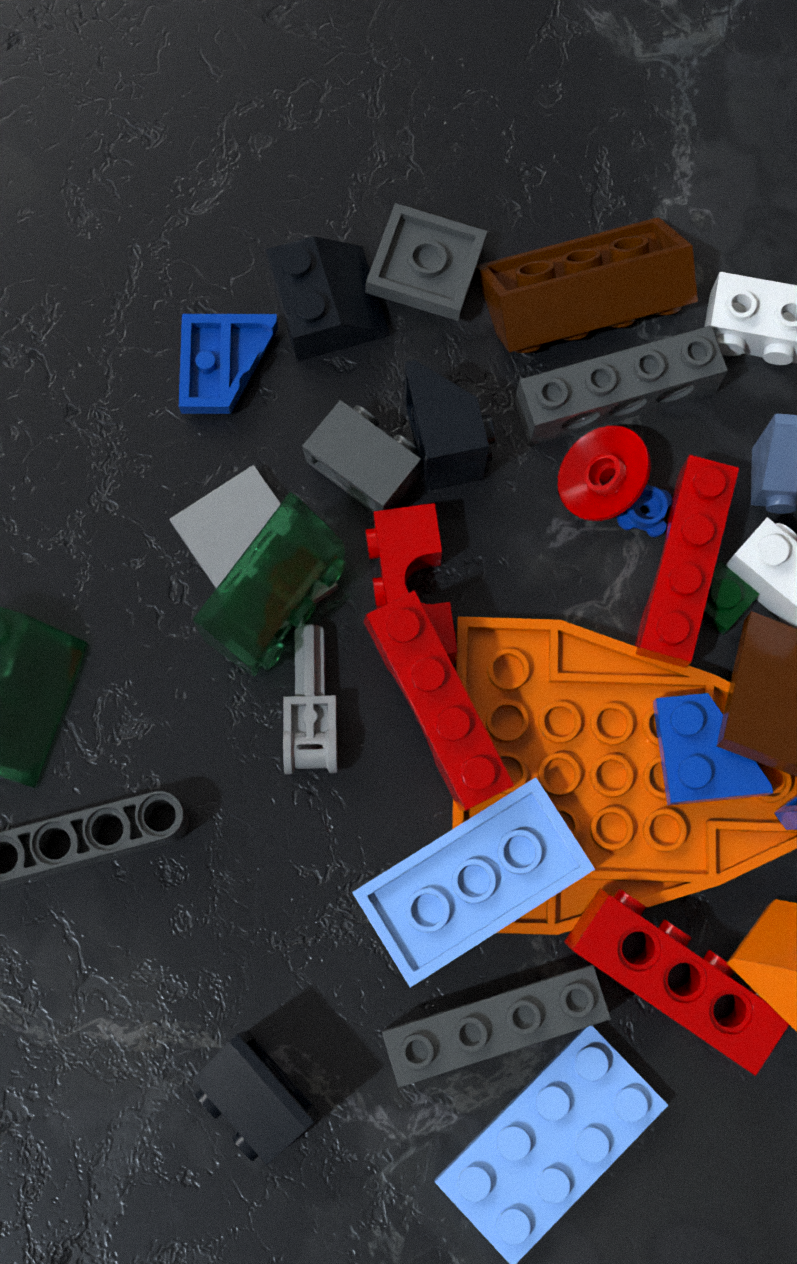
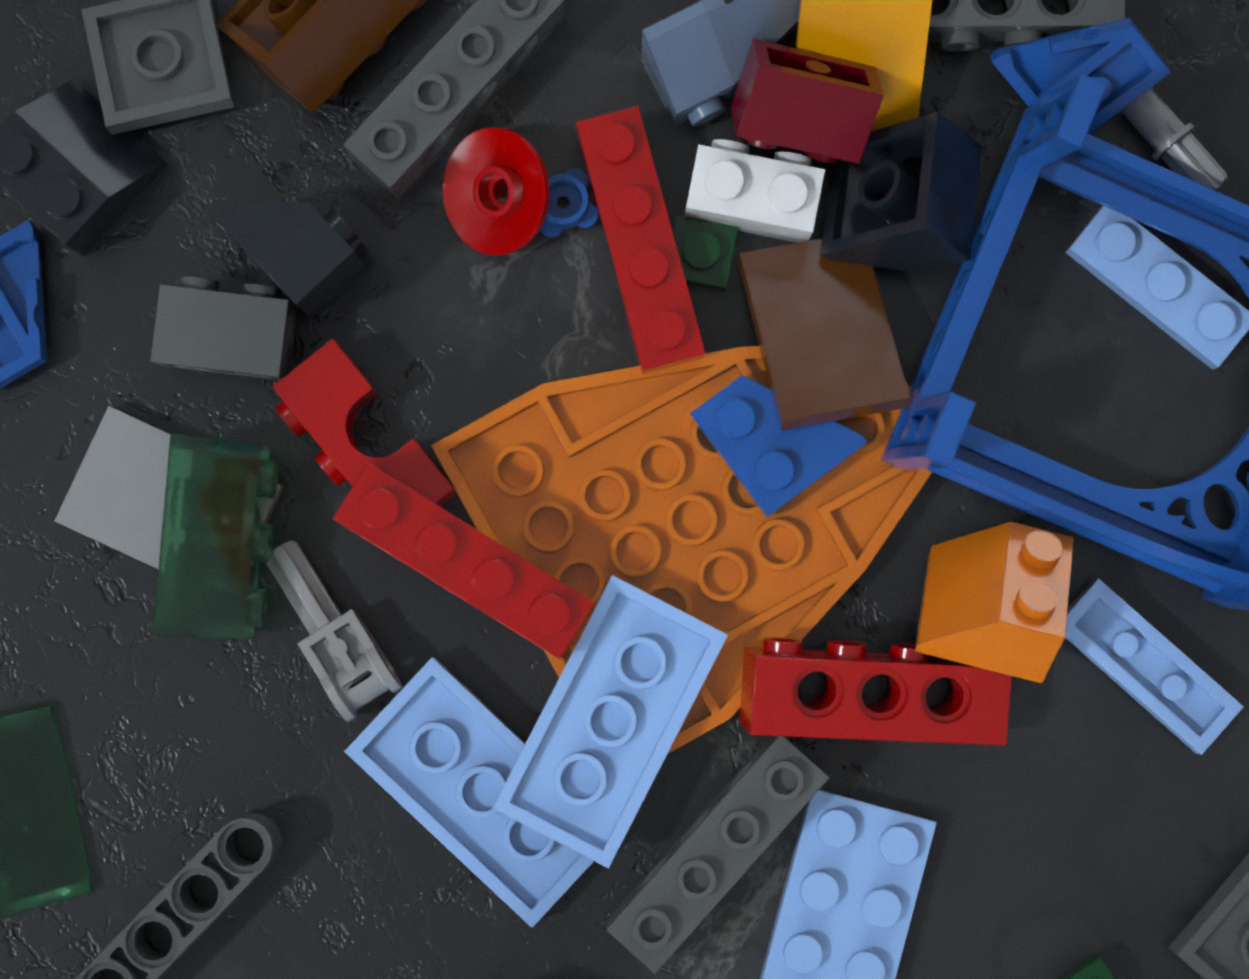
camera: 30 degrees left, 10 degrees up
(334, 845) = (446, 766): none -> light blue plate

